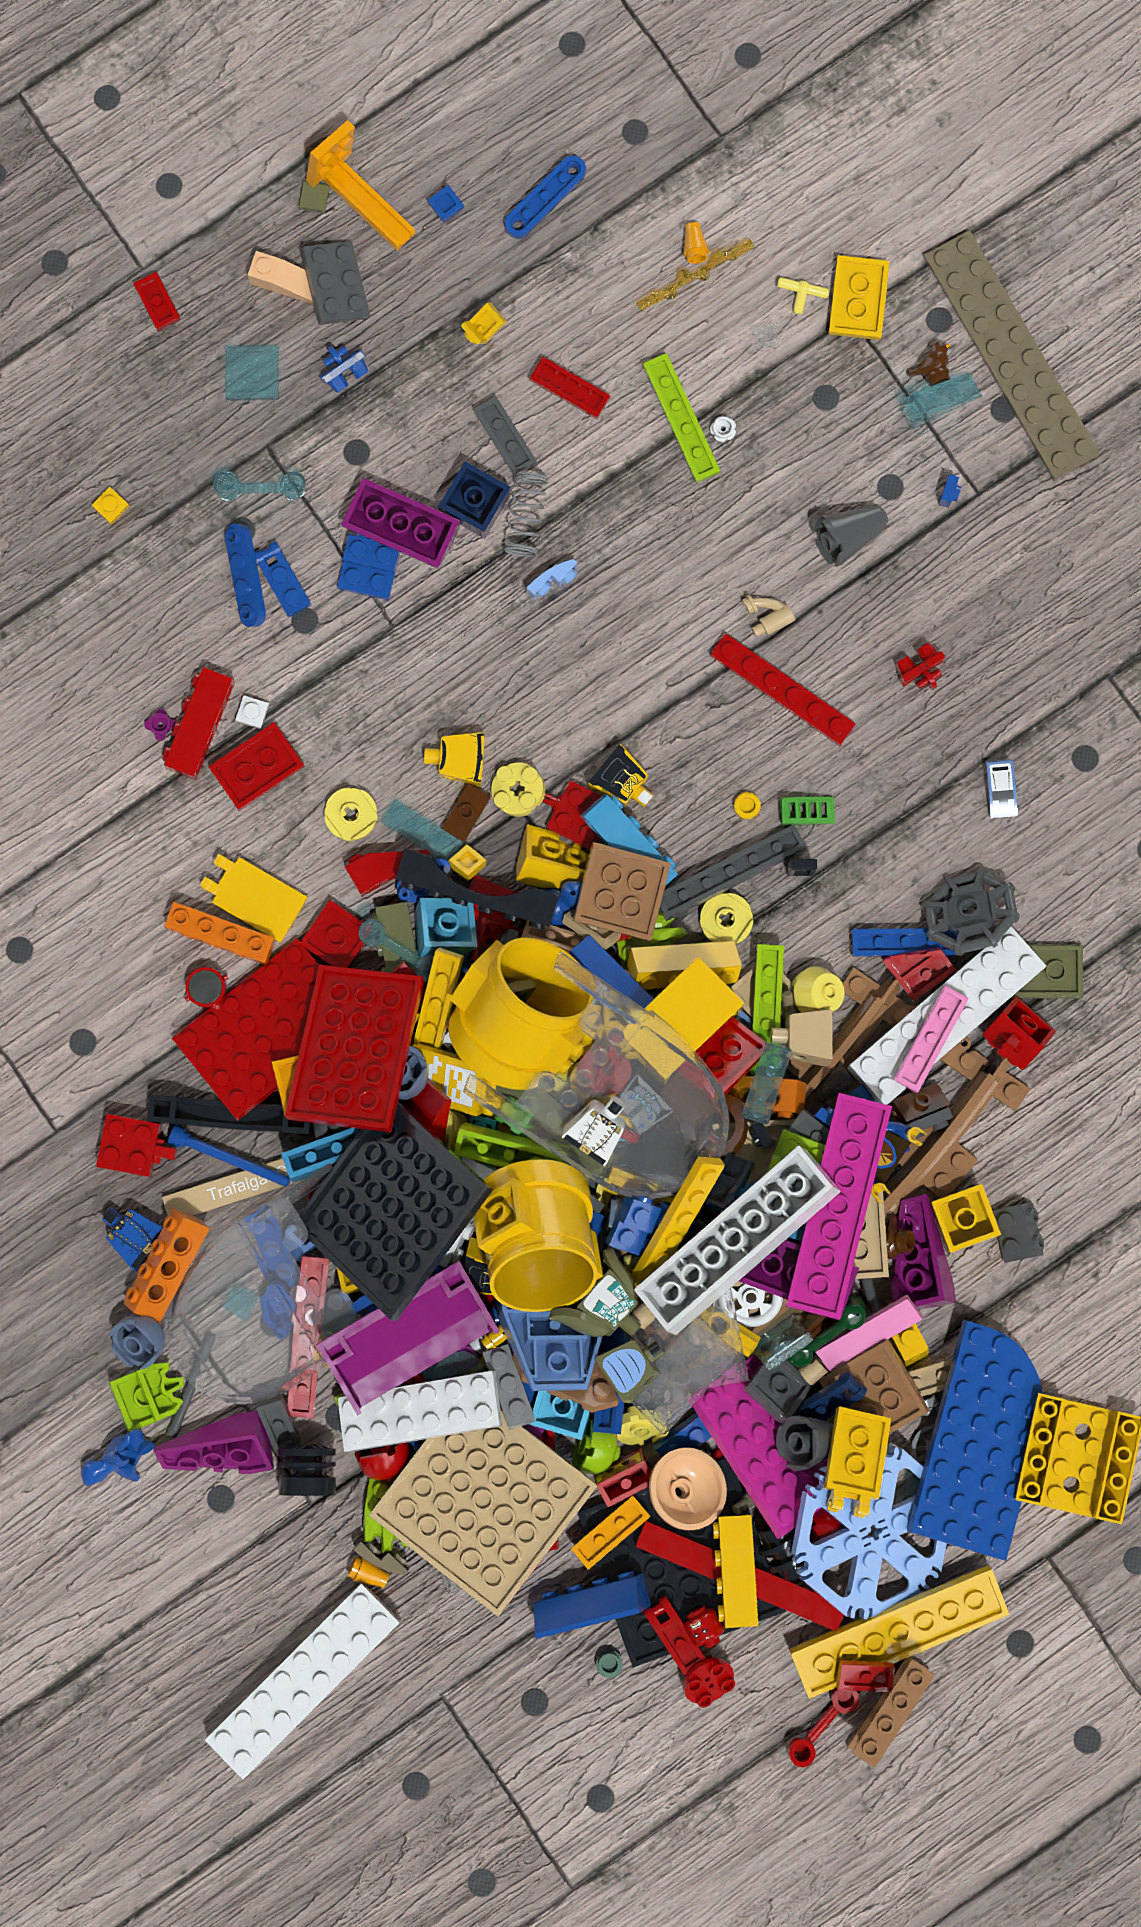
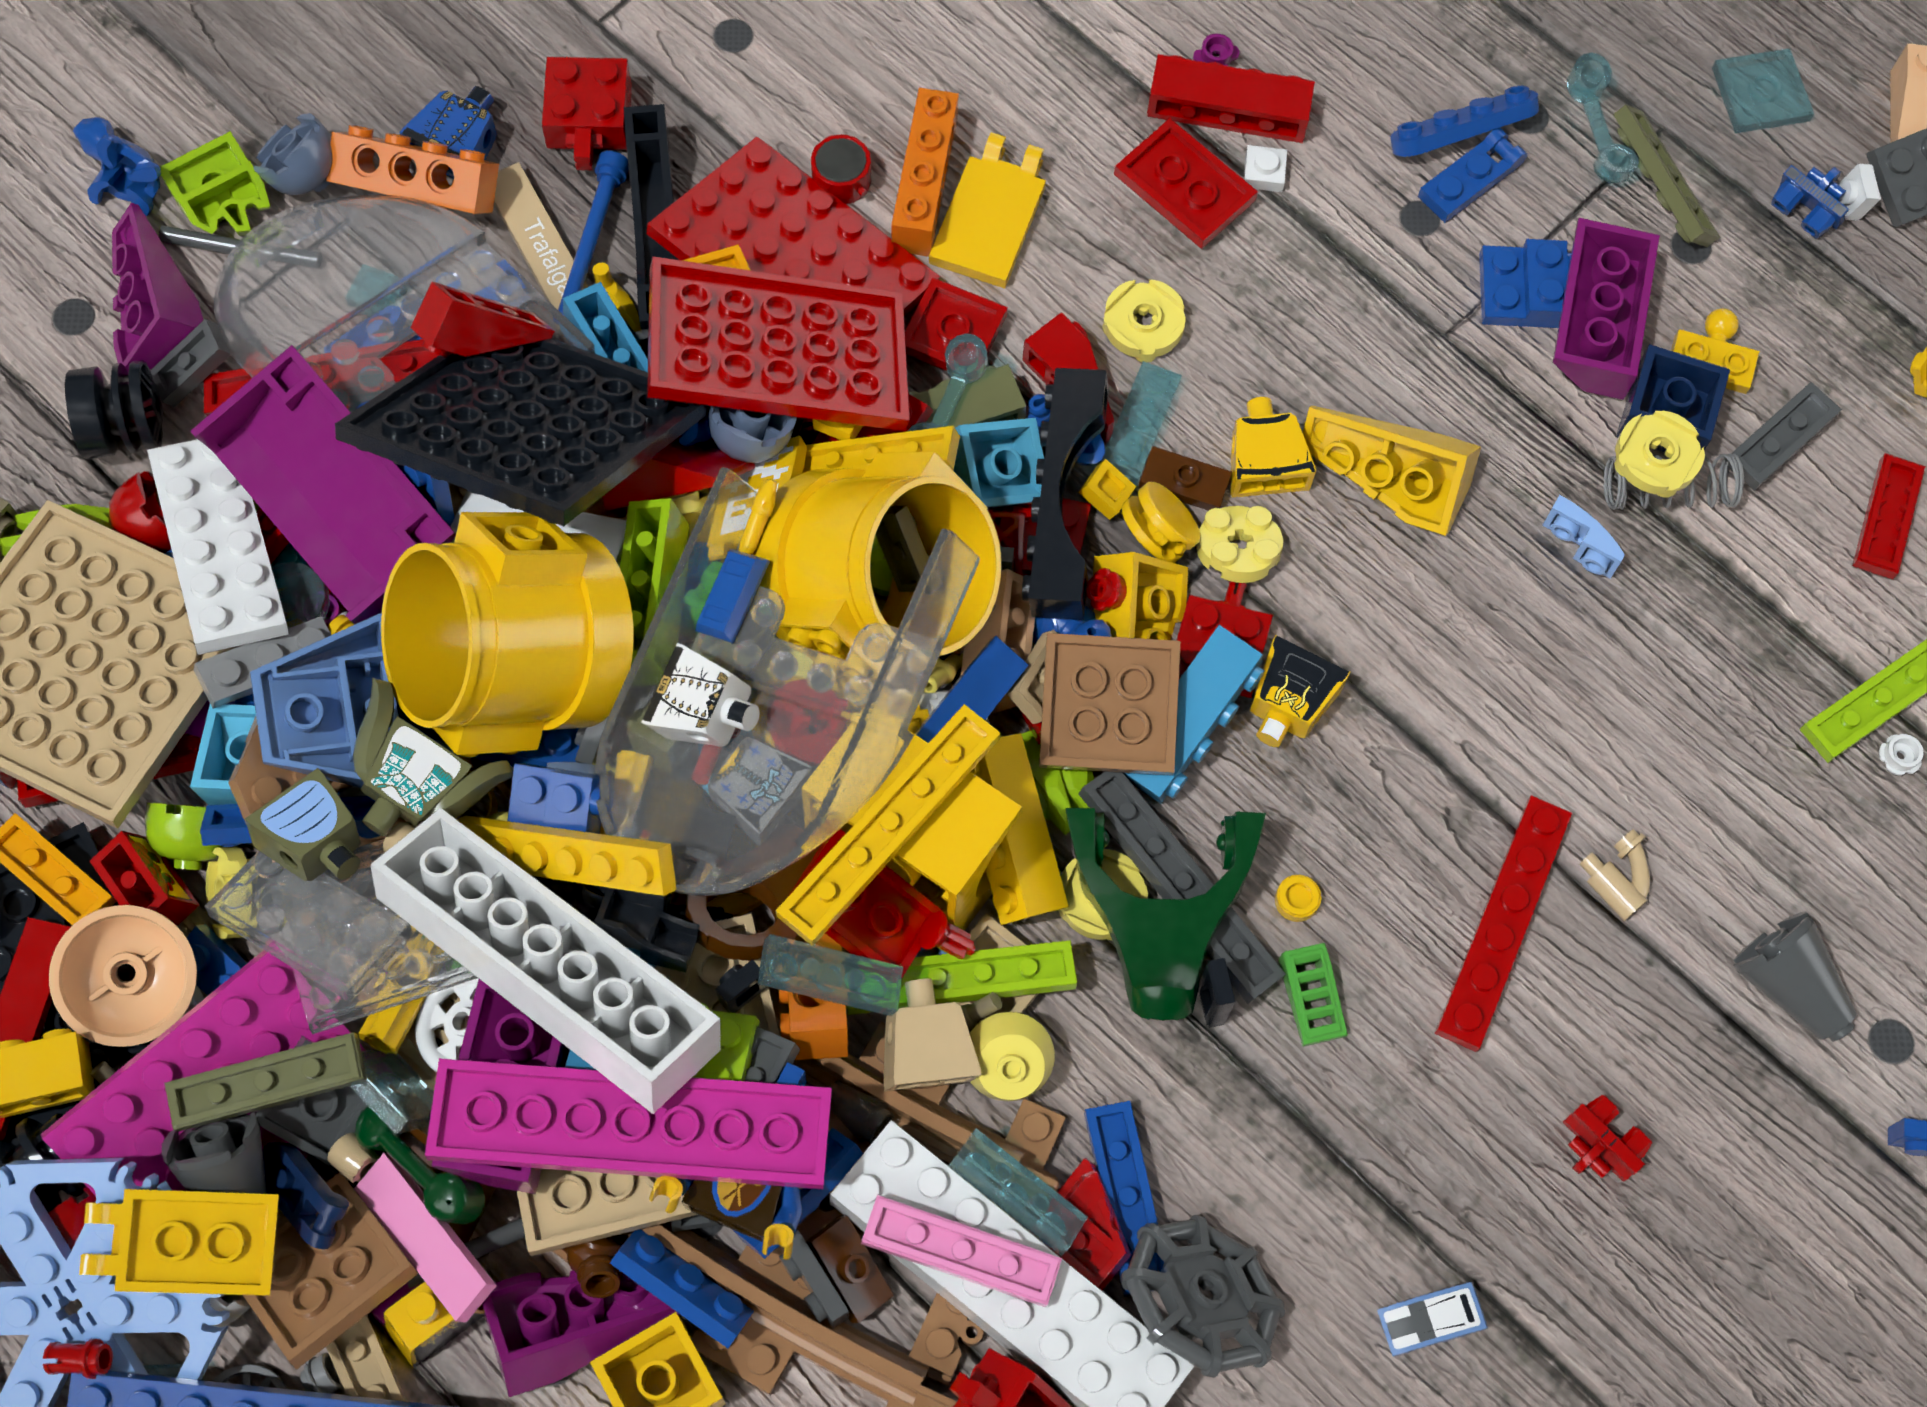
camera: 75 degrees right, 15 degrees down
(274, 1147) = (617, 294): none -> yellow bar
(308, 456) = (1658, 165): none -> olive plate
(310, 1231) = (473, 324): none -> red slope
(343, 336) = (1861, 191): none -> white plate
(442, 463) = (1720, 326): none -> yellow plate
(482, 1074) = (761, 511): none -> yellow piece
(484, 675) = (1404, 467): none -> yellow wedge
(500, 835) = (1161, 522): none -> yellow head
(516, 537) = (1644, 470): none -> light yellow plate
(532, 1101) = (731, 595): none -> blue tile
(544, 873) = (1106, 590): none -> red plate
(699, 1033) = (887, 825): none -> yellow plate
(745, 1019) = (941, 934): none -> red piece
(766, 890) = (1162, 939): none -> dark green animal
(772, 1408) = (265, 1082): none -> olive tile
(899, 1002) = (1018, 1191): none -> clear light blue plate
(904, 1526) = (85, 1359): none -> red pin
(918, 1196) = (682, 1287): none -> blue plate

